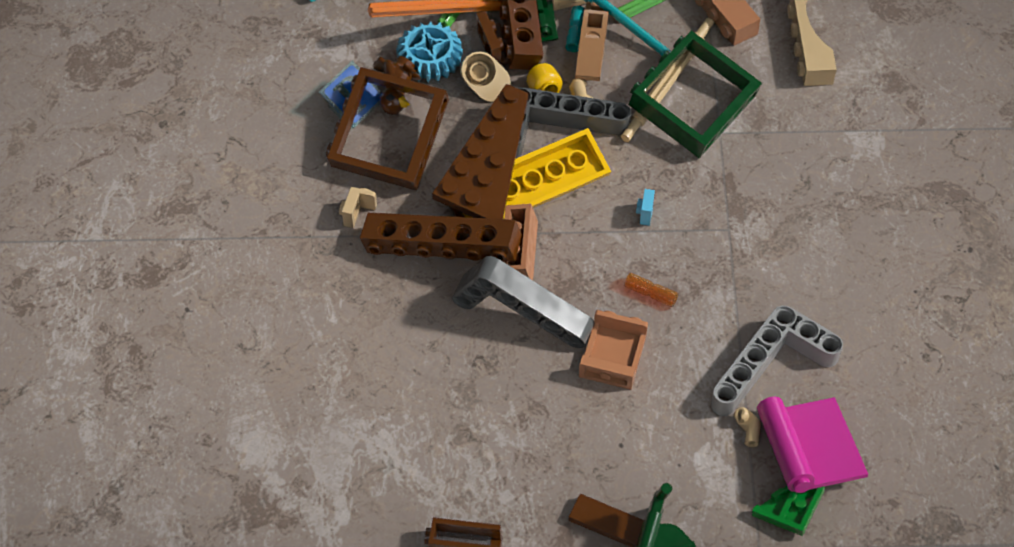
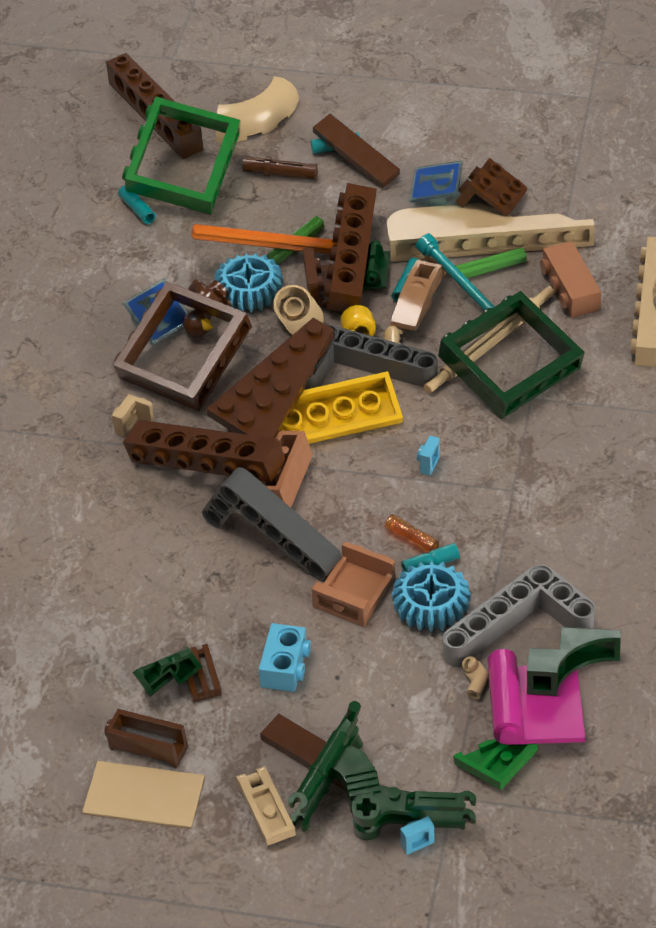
camera: 15 degrees right, 10 degrees down
(475, 463) = (178, 665): none -> dark green slope
(484, 444) = (204, 652): none -> reddish brown tile
(566, 435) = (283, 657): none -> medium azure brick
(676, 359) = (448, 600): none -> medium azure gear
(677, 312) = (443, 554): none -> teal piece
(832, 385) = (577, 649): none -> dark green arch

